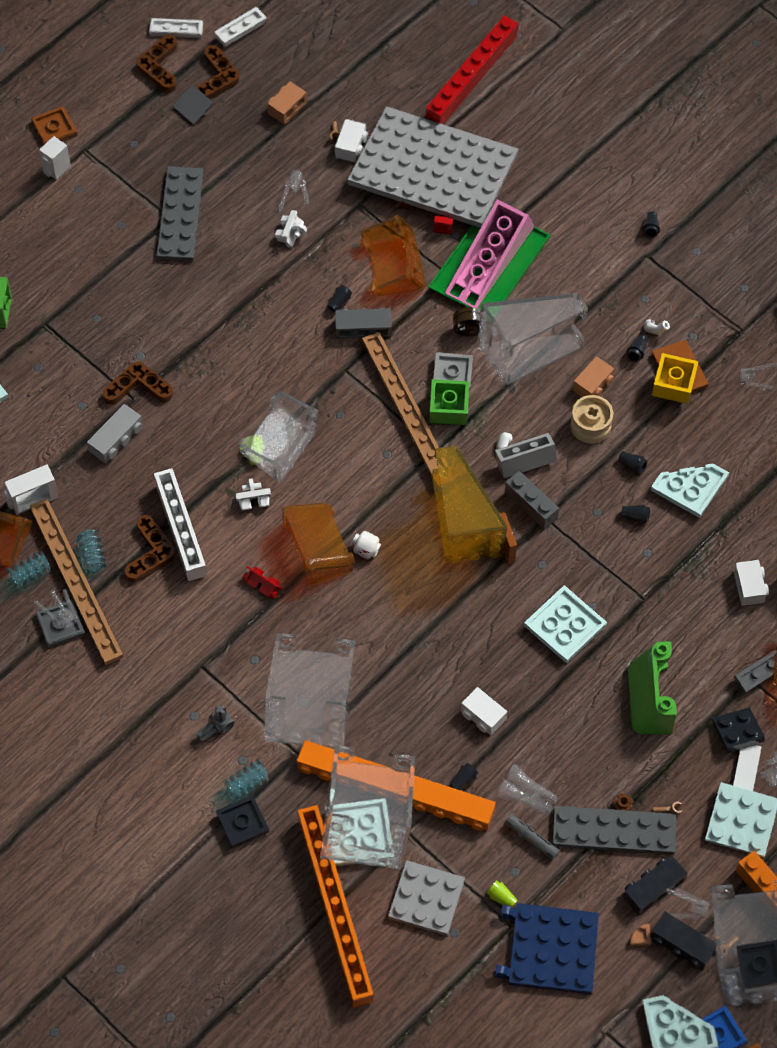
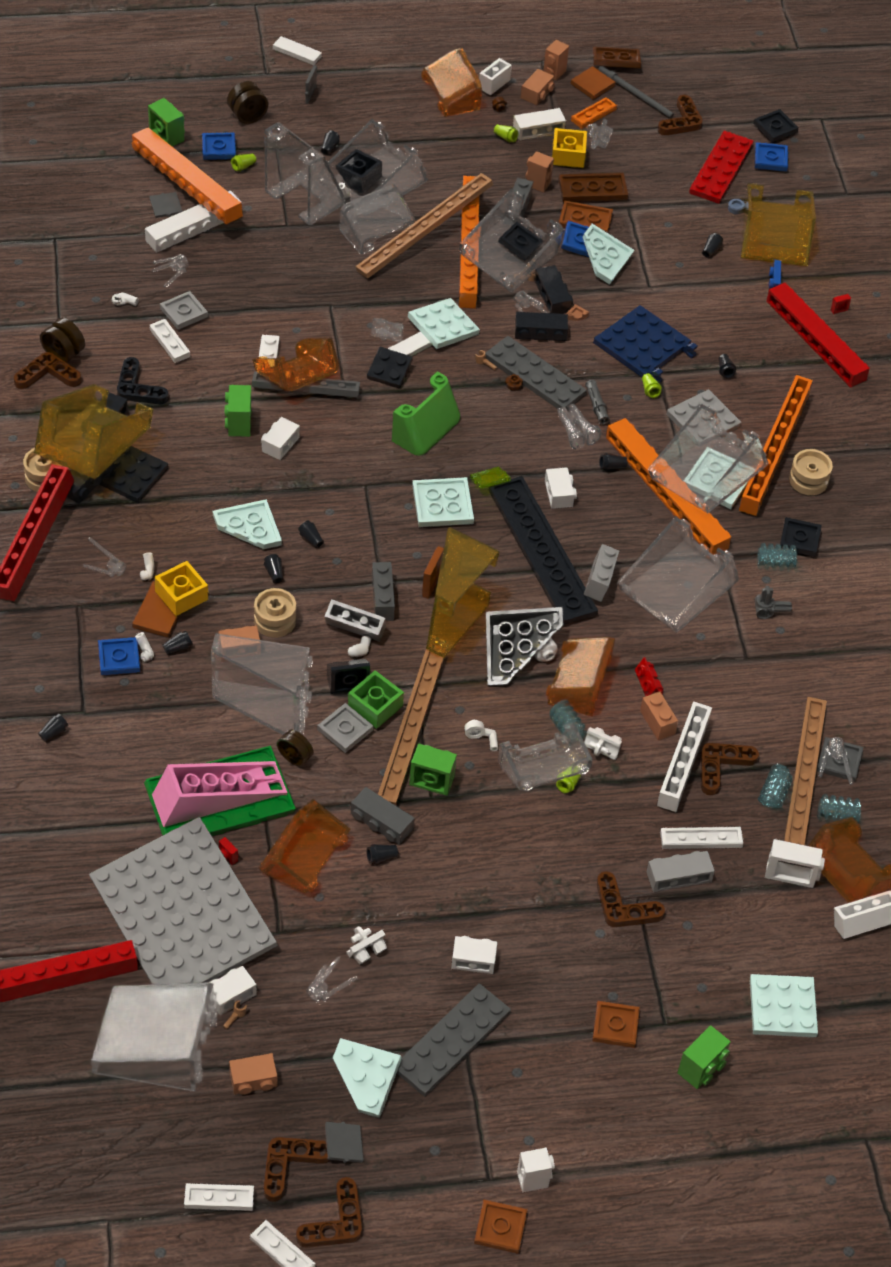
camera: 145 degrees left, 10 degrees down
(78, 298) = (616, 1024): none -> dark orange tile
(120, 477) = (701, 837): none -> white tile
(212, 272) = (474, 954): none -> white brick
(216, 152) = (367, 1074): none -> light aqua plate
(227, 548) = (659, 716): none -> nougat brick
(281, 907) = (810, 472): none -> tan wheel
(293, 492) = (563, 714): none -> clear light blue piece
(356, 374) = (433, 769): none -> bright green brick
(358, 438) = (475, 729): none -> white plate
(368, 75) = (156, 1033): none -> clear windscreen
(375, 642) = (601, 572): none -> light grey brick
(391, 527) = (515, 638): none -> dark grey slope
(447, 640) = (543, 550): none -> black plate
(453, 976) = (726, 366): none -> black cone
(489, 407) = (347, 674): none -> black slope
(549, 678) = (490, 477): none -> clear neon green piece
(667, 307) = (119, 656): none -> blue plate
(721, 391) = (149, 566): none -> white arm

